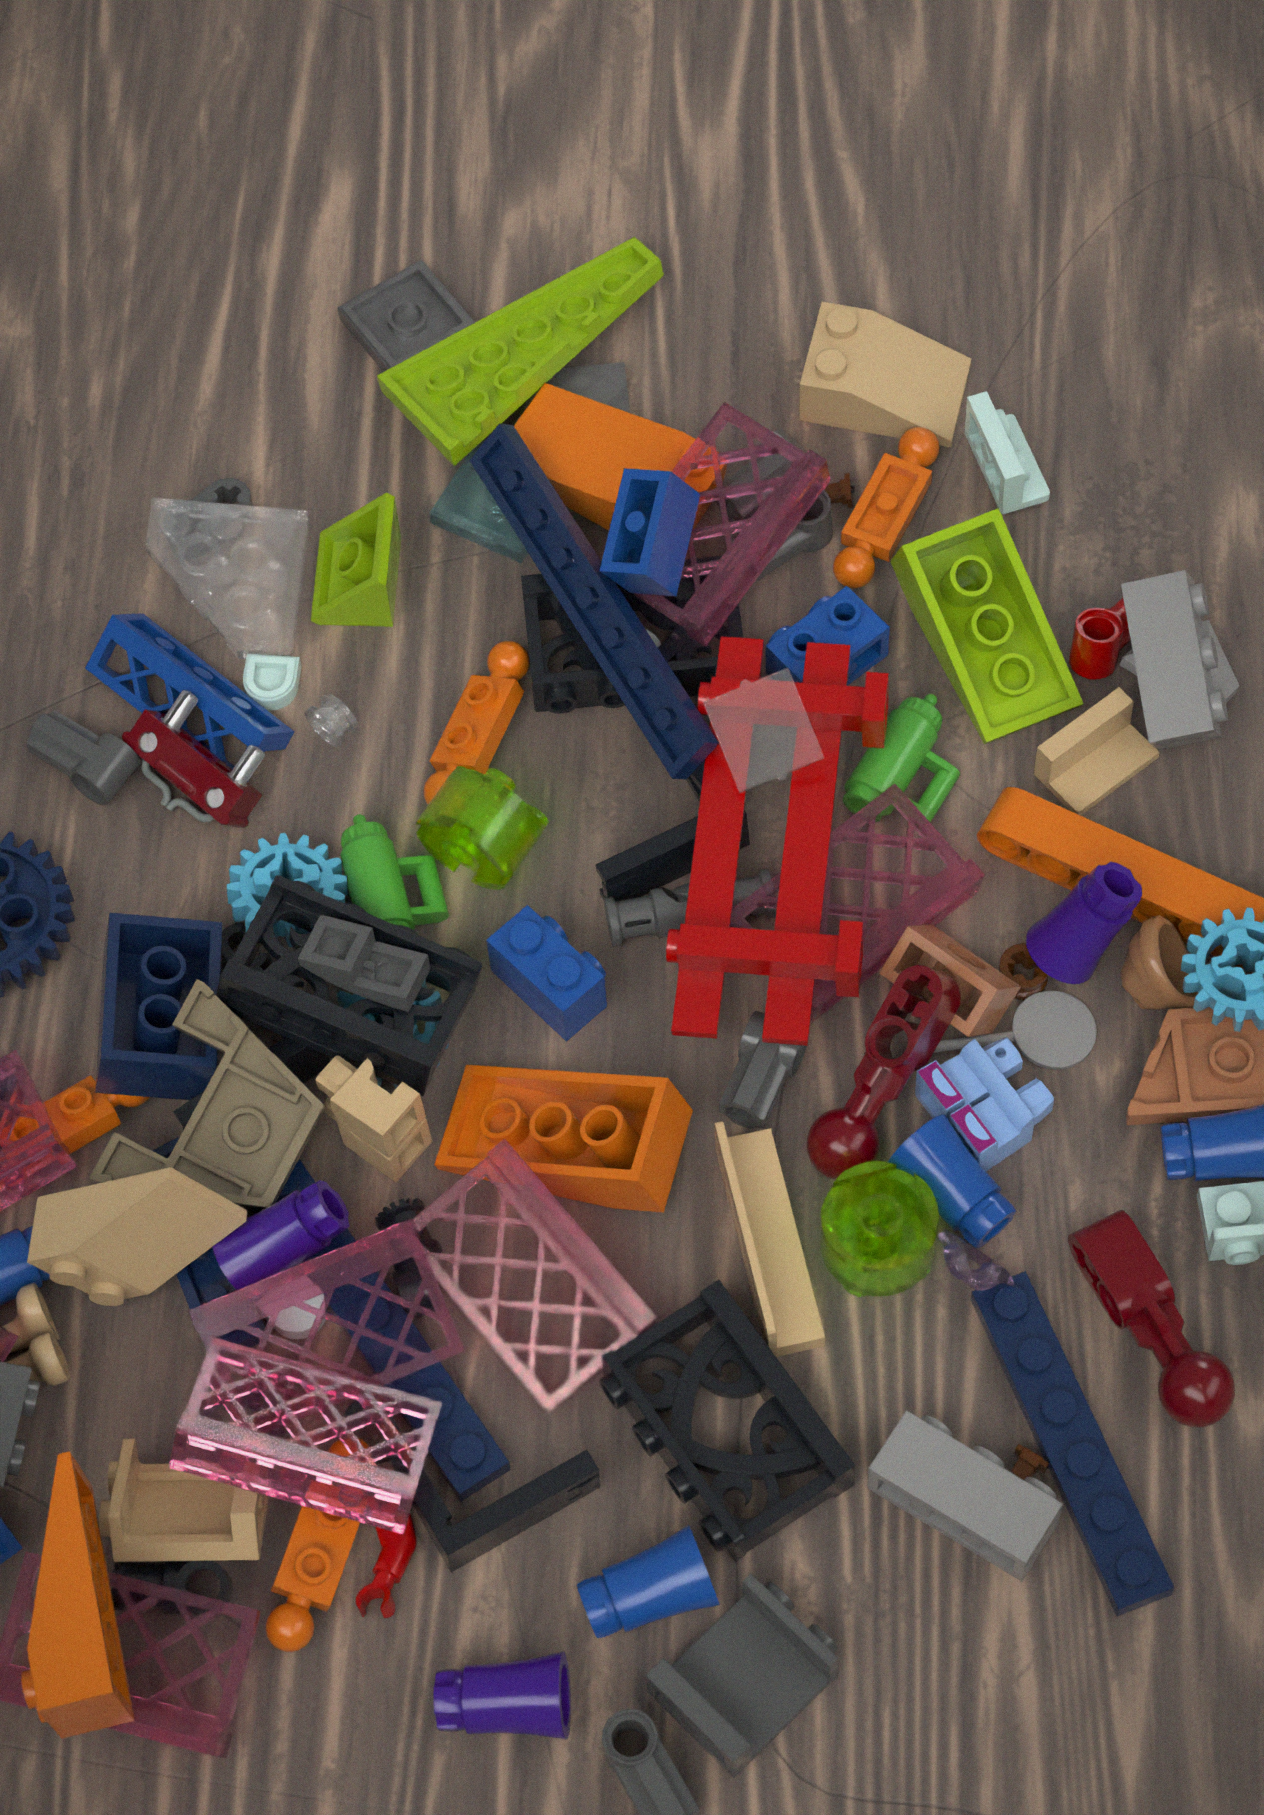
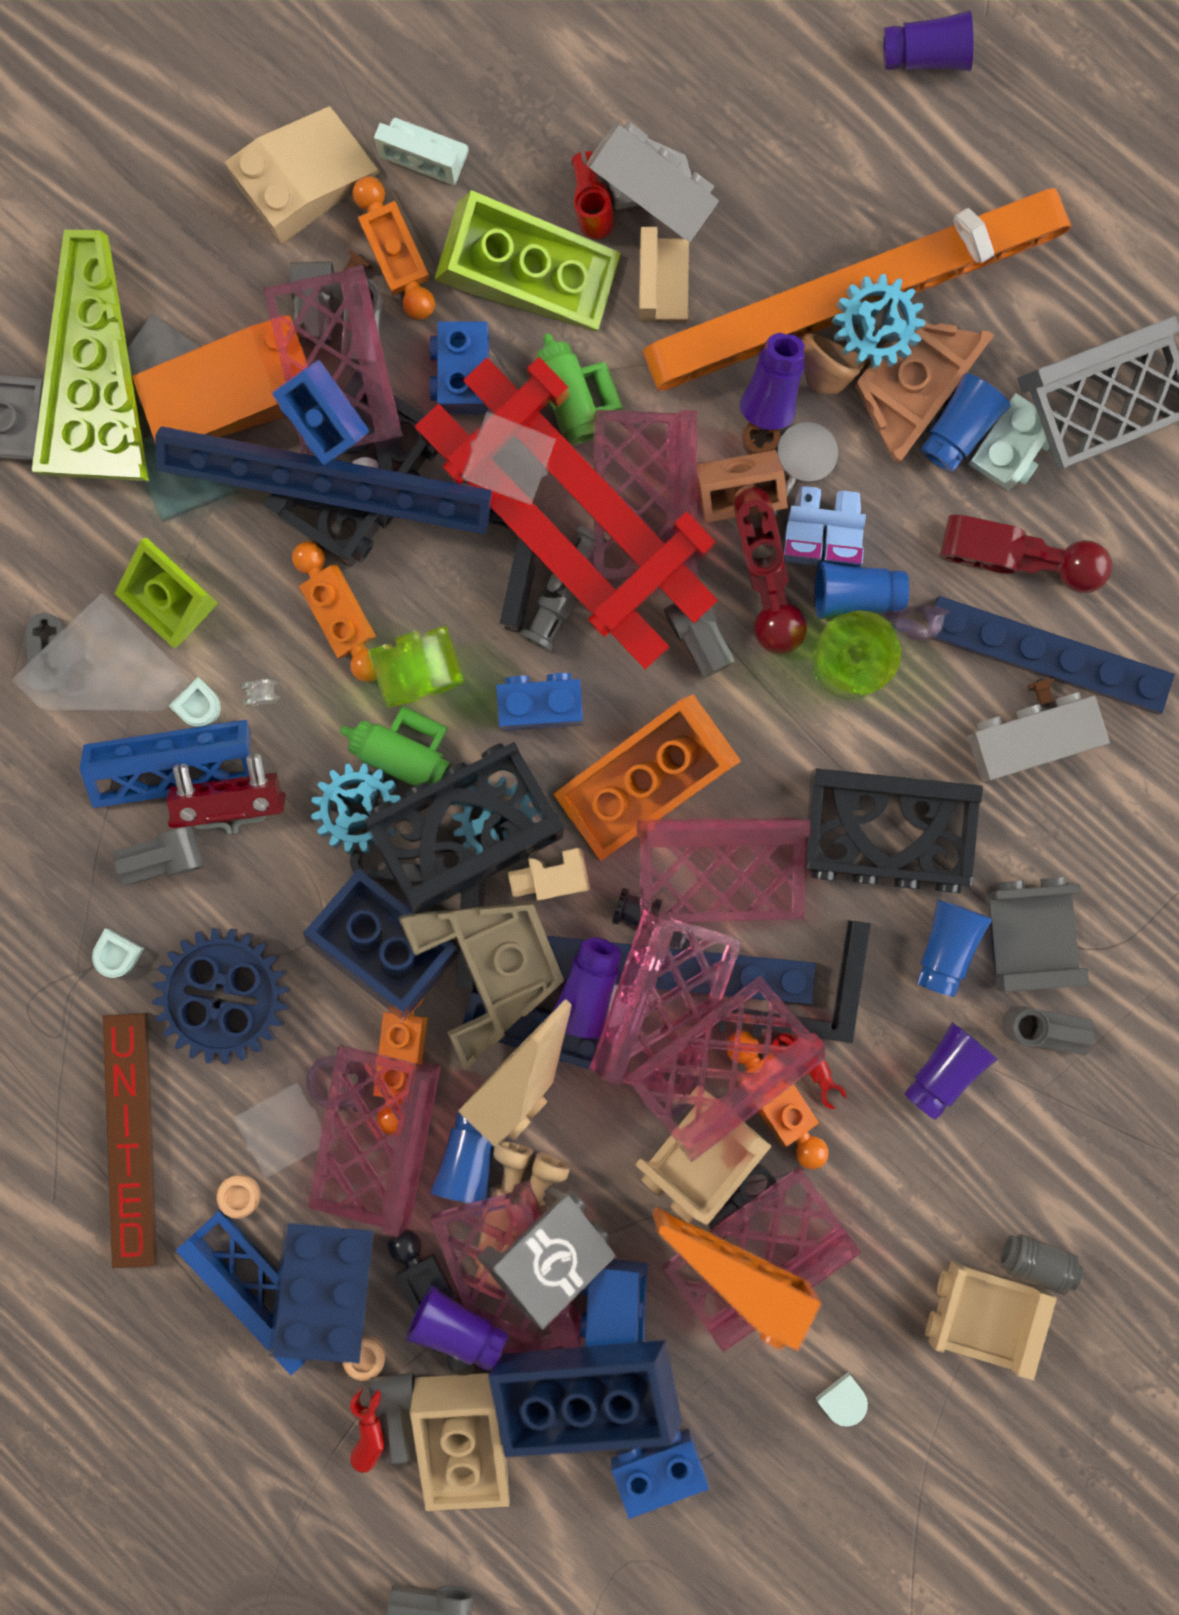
camera: 55 degrees left, 25 degrees up
(354, 961) = (462, 812): dark grey slope -> none
(769, 1241) = (803, 717): tan panel -> none

